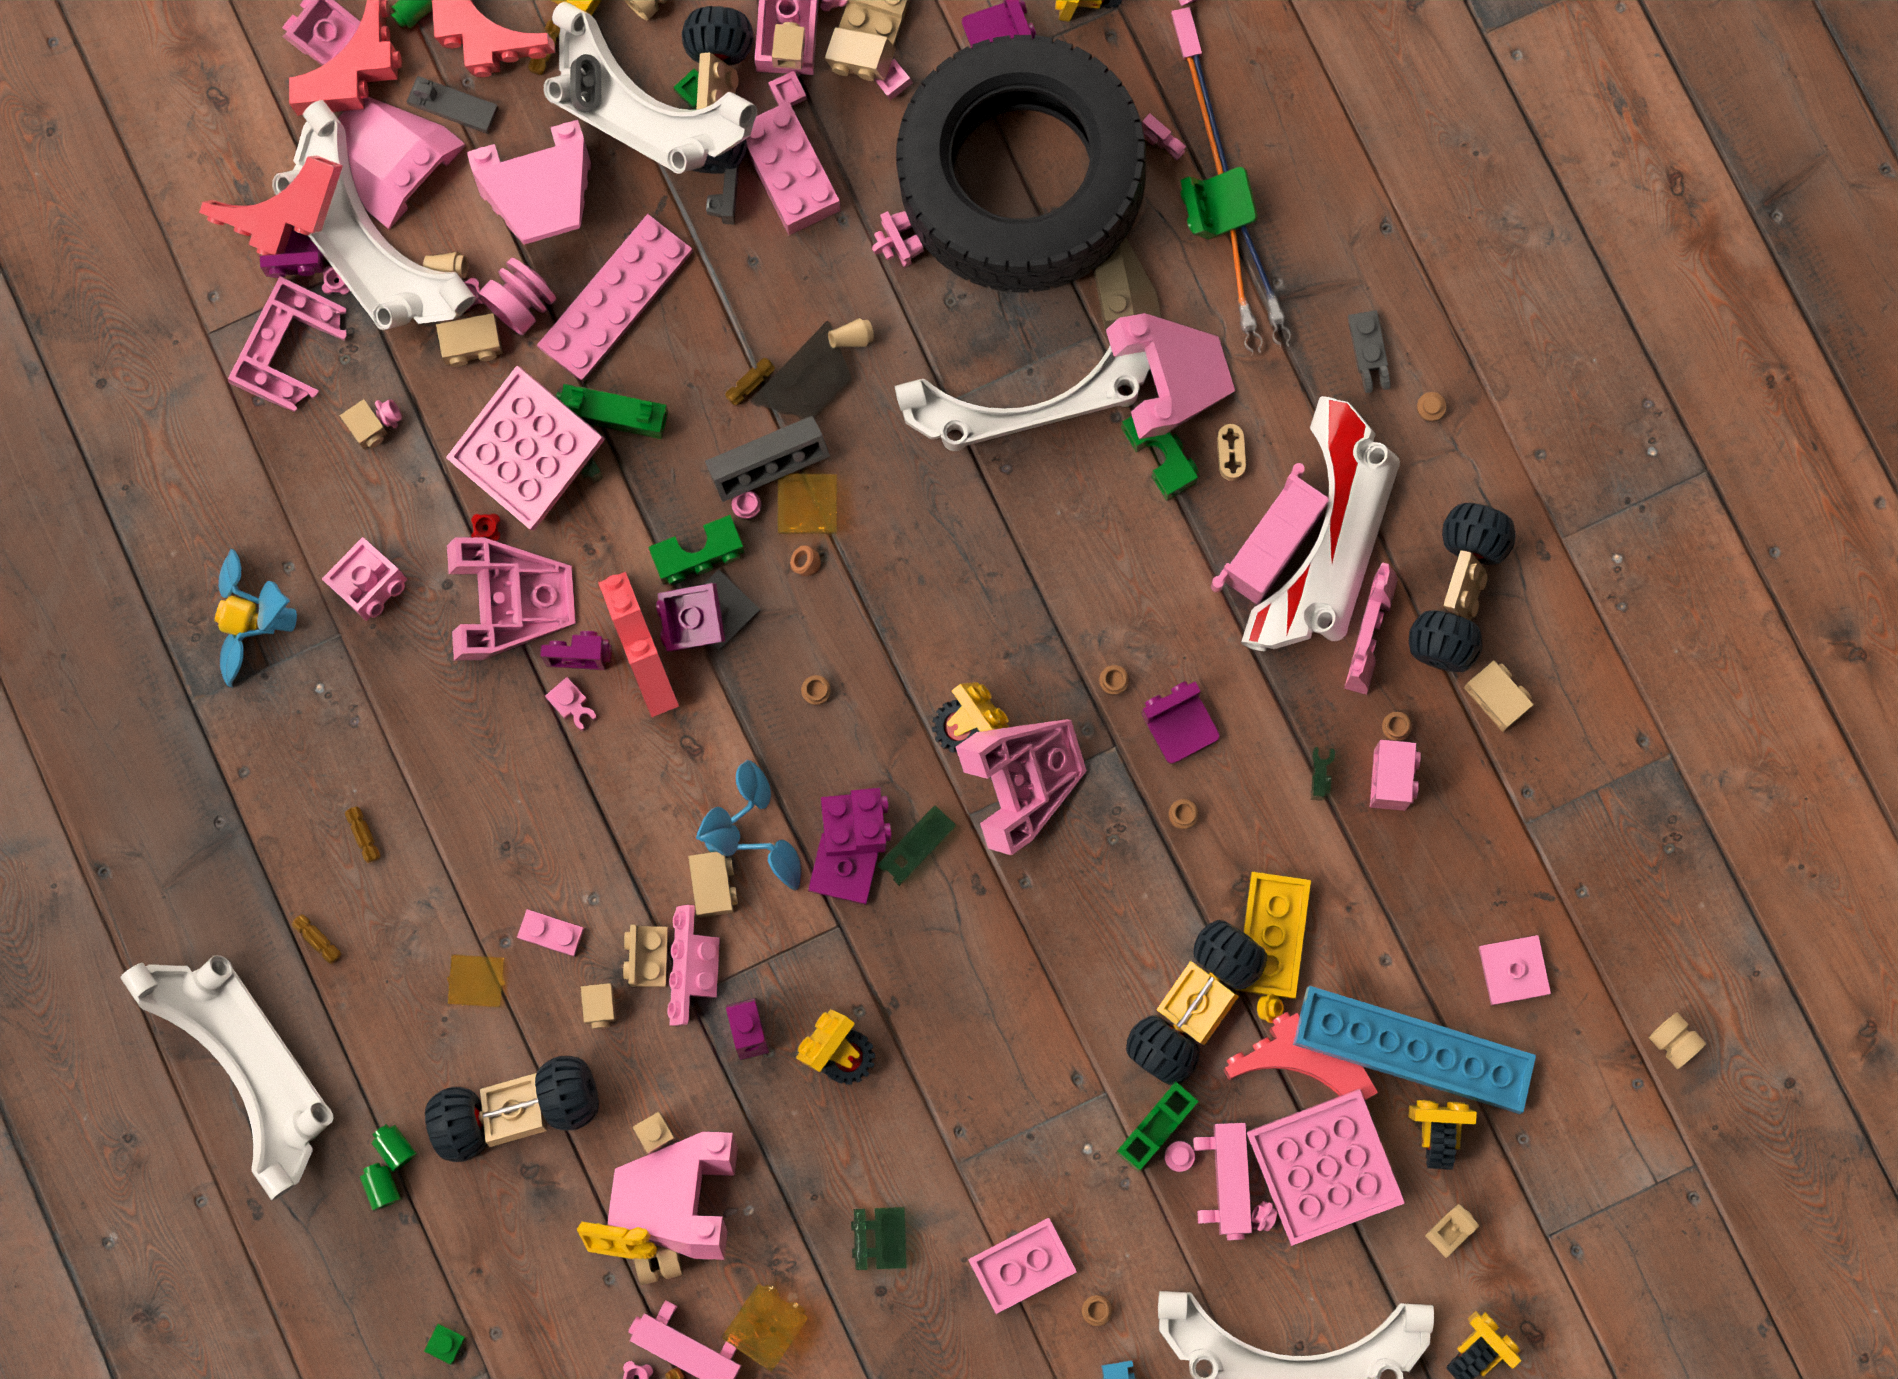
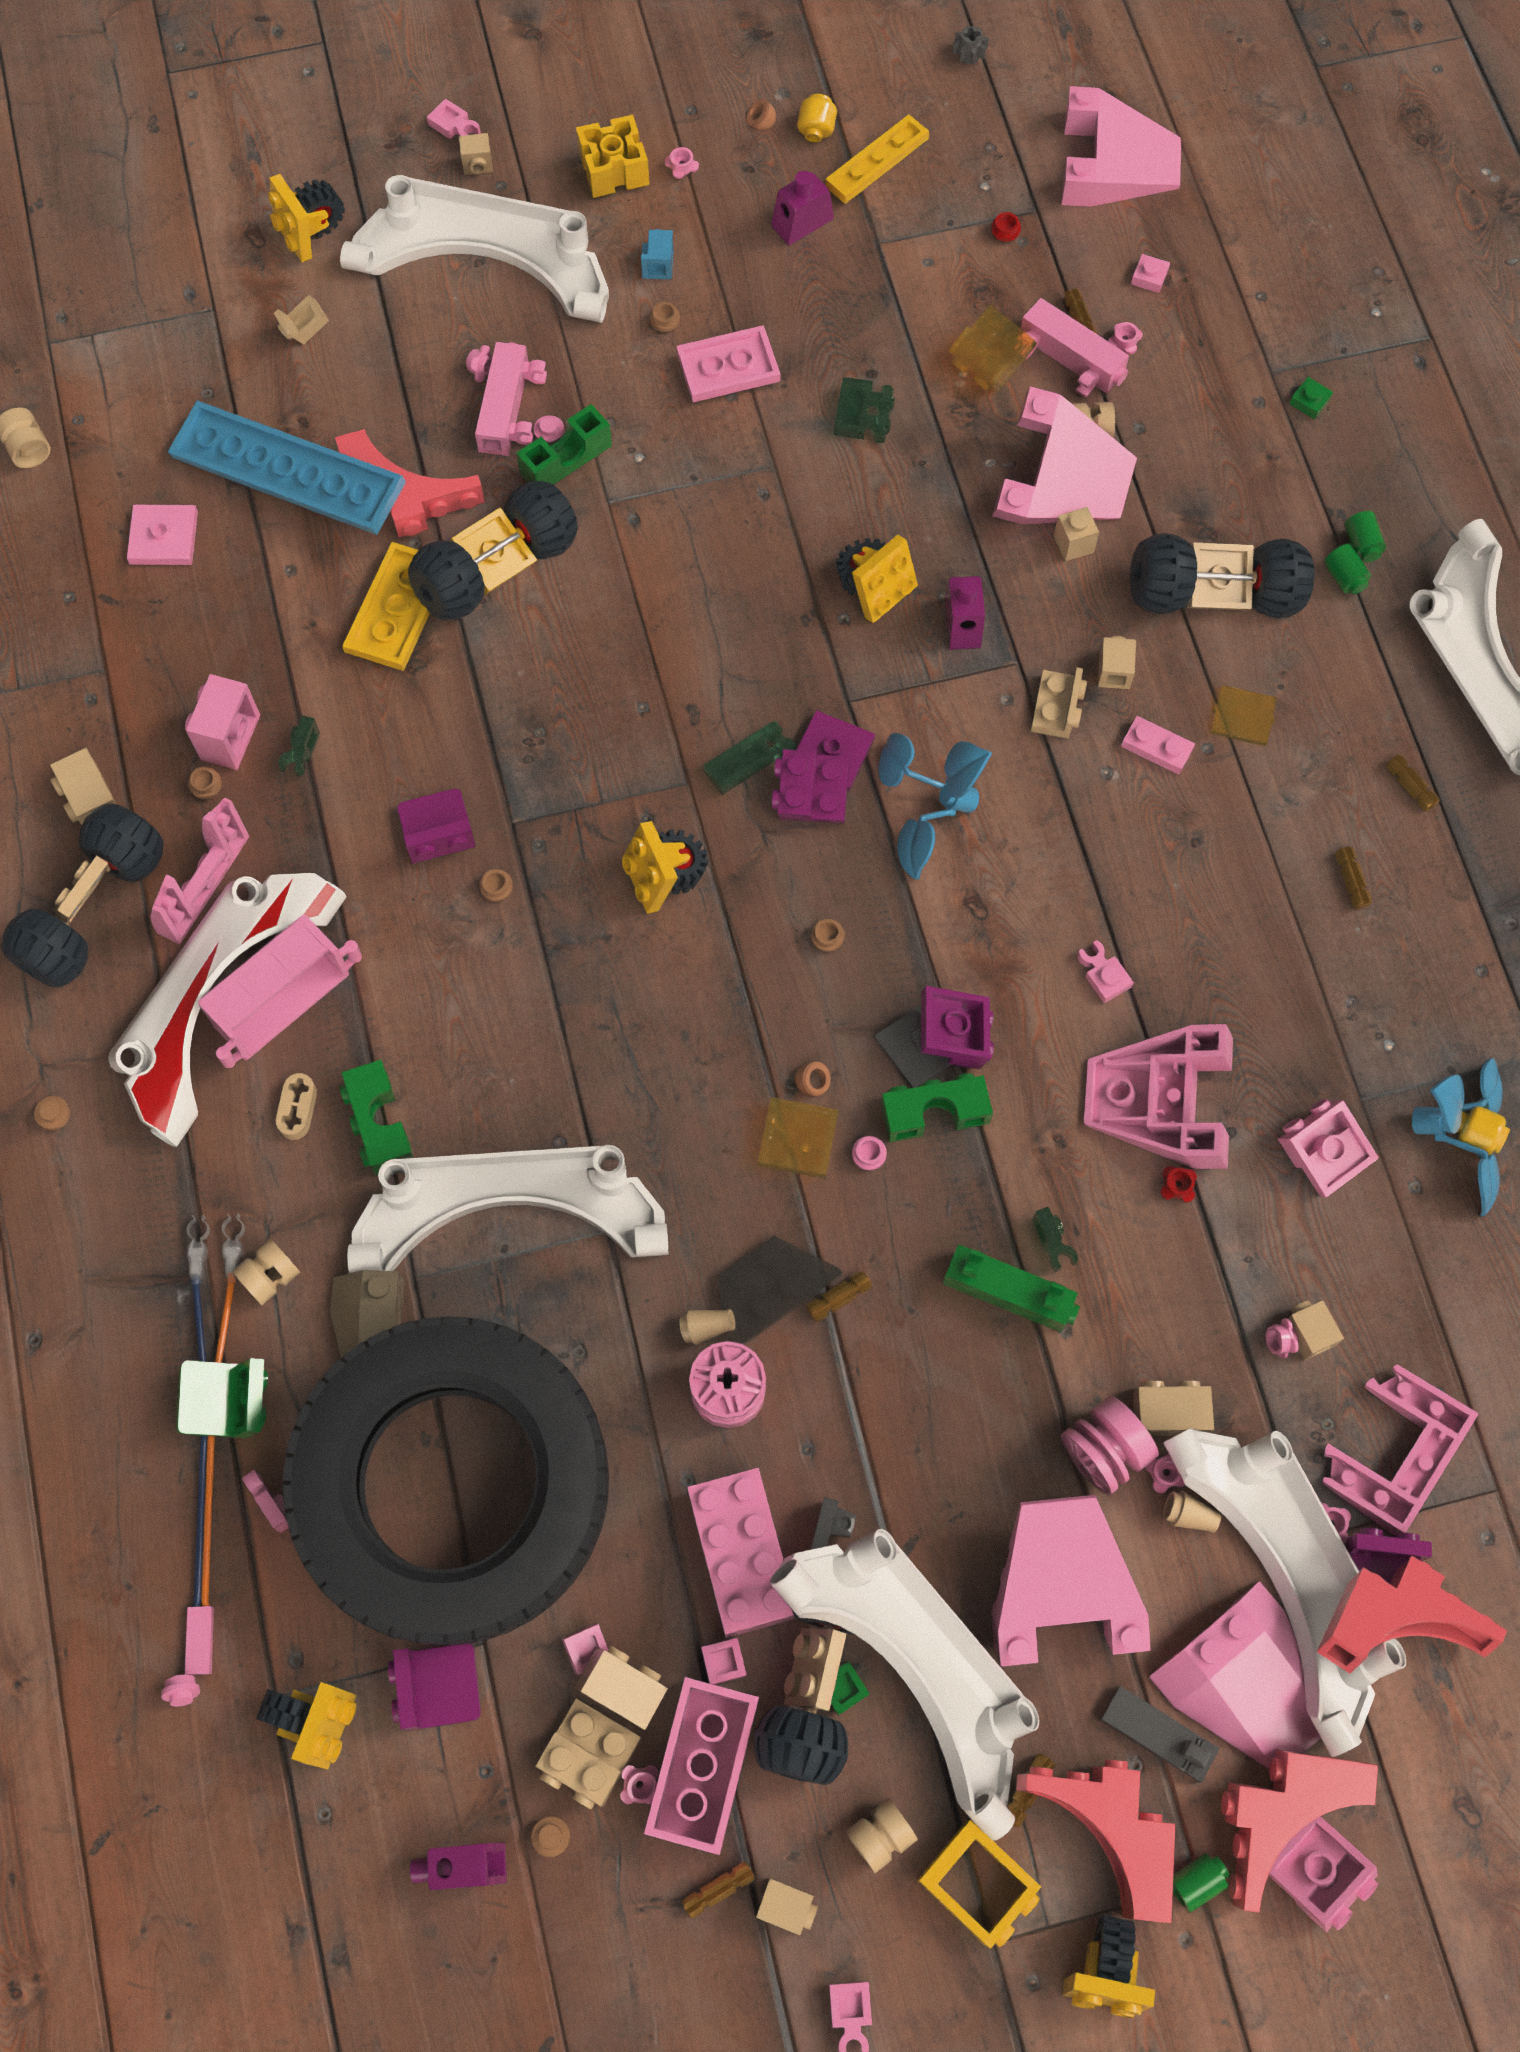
camera: 170 degrees left, 10 degrees down
(525, 448) = (1121, 1256): bright pink plate -> none
(585, 85) = (983, 1712): dark grey plate -> none
(585, 652) = (1091, 1006): magenta plate -> none
(615, 298) = (985, 1434): bright pink plate -> none
(616, 1241) = (1128, 436): yellow hinge -> none
(638, 644) = (1025, 1015): coral arch -> none
(693, 965) = (1011, 682): bright pink bracket -> none
(711, 884) = (986, 736): tan brick -> none
(767, 458) = (835, 1193): dark grey brick -> none
(788, 46) = (710, 1700): tan brick -> none
(824, 303) = (727, 1406): none -> bright pink wheel
(893, 226) = (618, 1419): bright pink hips -> none
(1031, 774) = (622, 785): bright pink wedge -> none
(1183, 814) = (458, 738): medium nougat plate -> none
(1184, 366) = (319, 1193): bright pink wedge -> none
(1214, 307) = (252, 1273): none -> tan wheel
(1269, 1007) = (420, 537): yellow plate -> none
(1325, 1167) = (406, 385): bright pink plate -> none
(1369, 348) = (101, 1195): dark grey hinge -> none
(1441, 1130) = (280, 398): plate -> none

